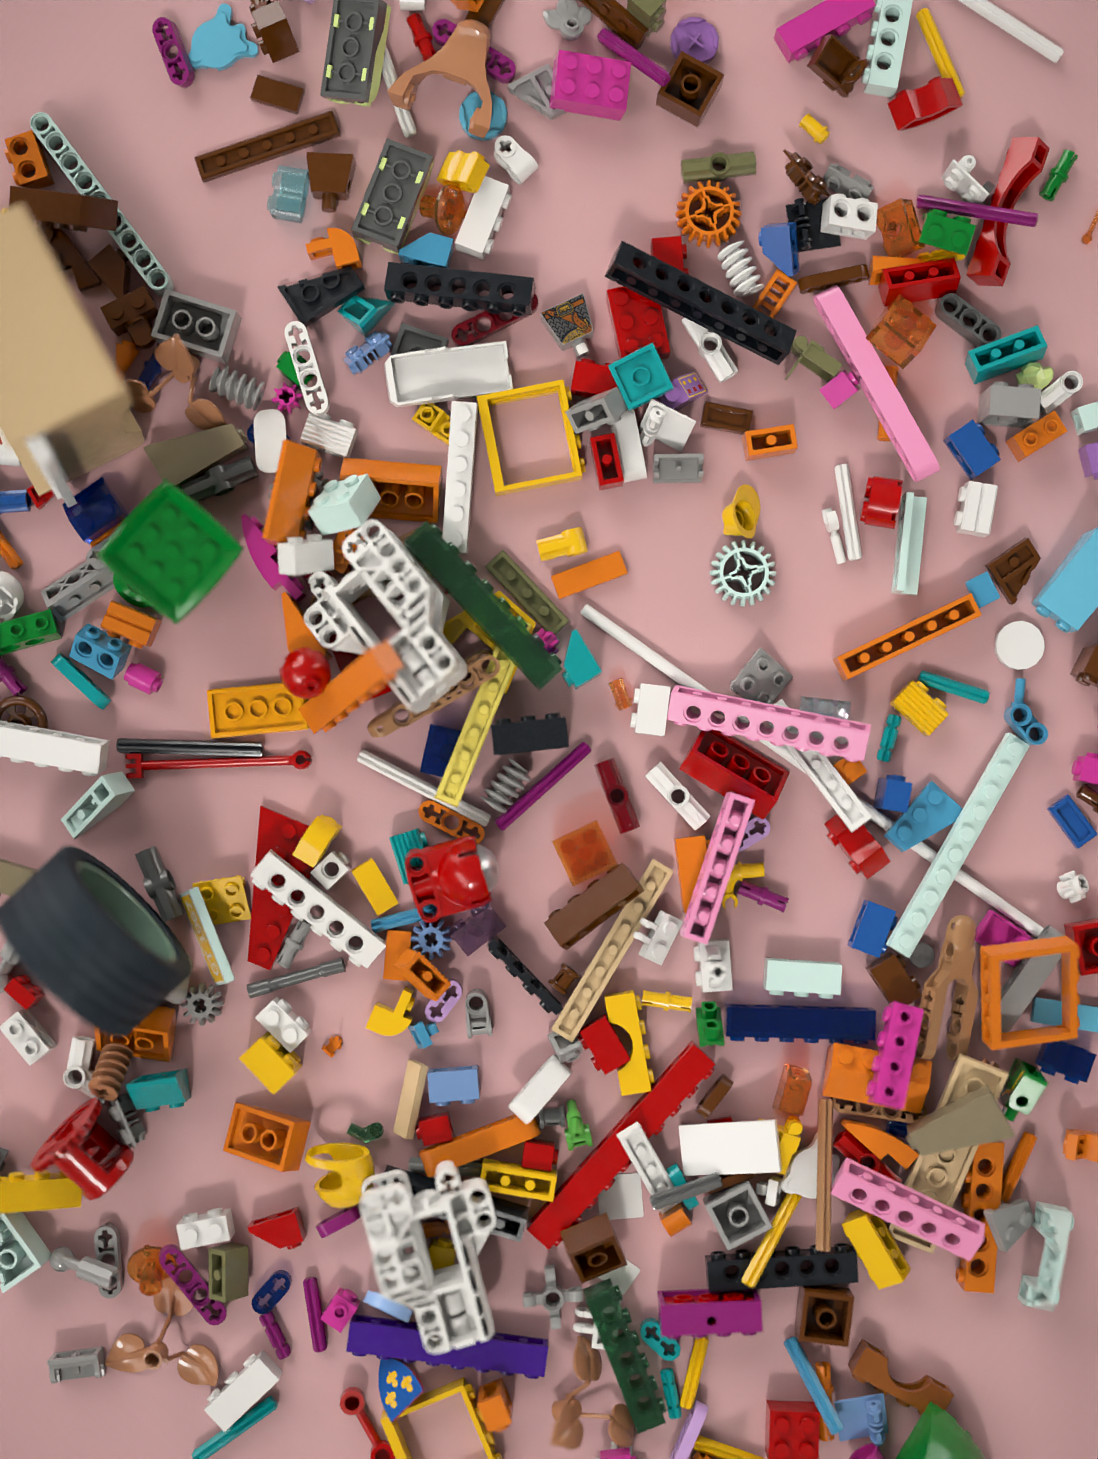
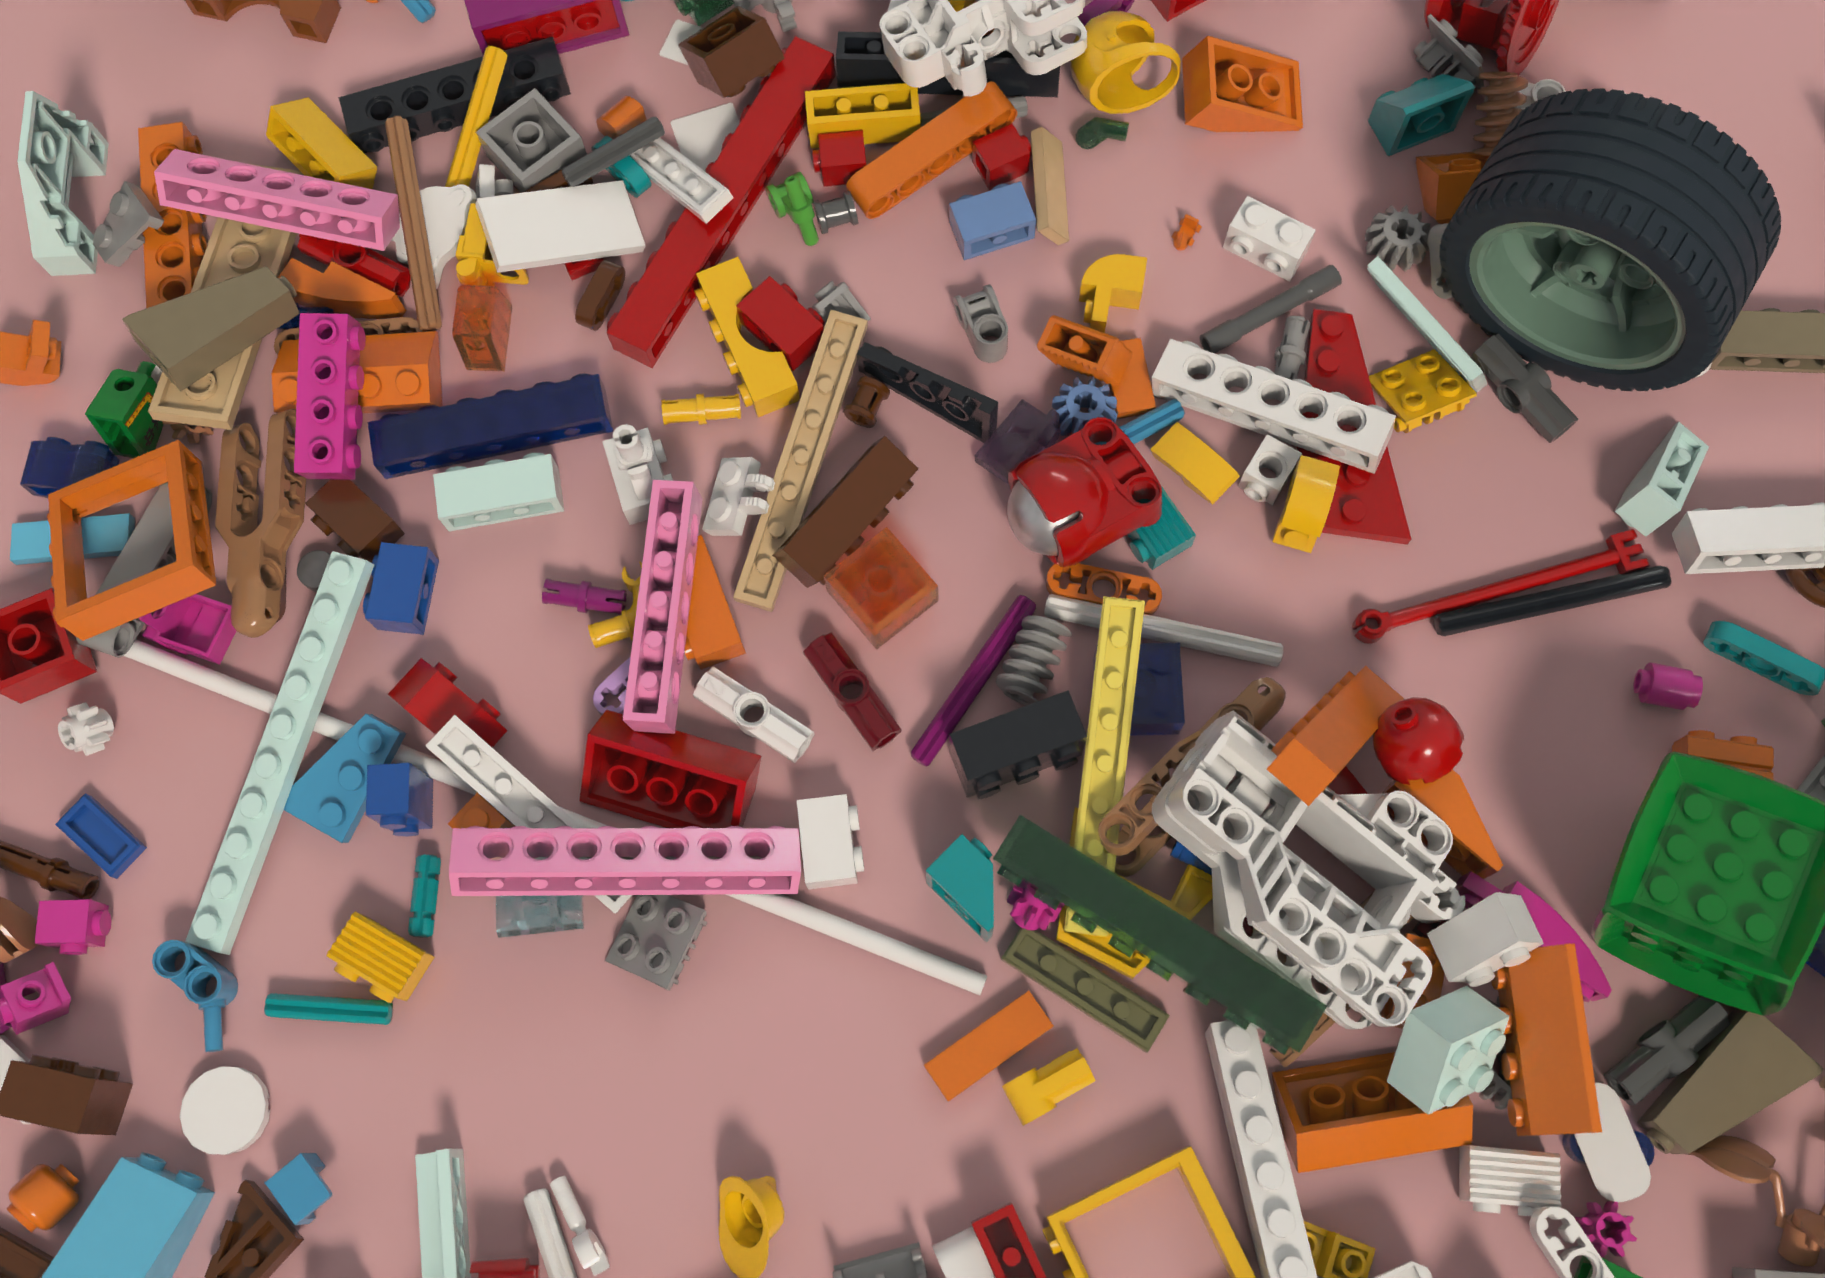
camera: 170 degrees right, 15 degrees down
(100, 651) = (1756, 708): dark azure brick -> none
(237, 388) = (1702, 1223): light grey piece -> none
(254, 710) = (1480, 677): light orange tile -> none
(271, 1062) = (1271, 173): yellow brick -> none
(422, 1033) = (1056, 277): dark azure tile -> none
(448, 1004) = (1032, 328): lavender beam -> none
(539, 1089) = (863, 237): white beam -> none
(620, 694) = (885, 855): clear orange pin -> none
(709, 1024) = (627, 385): green hips -> none
(740, 562) = (692, 1133): light aqua gear -> none
(824, 1315) = (379, 44): reddish brown brick -> none
(907, 637) = (416, 1073): orange brick -> none
(1017, 1165) = (131, 301): orange axle -> none

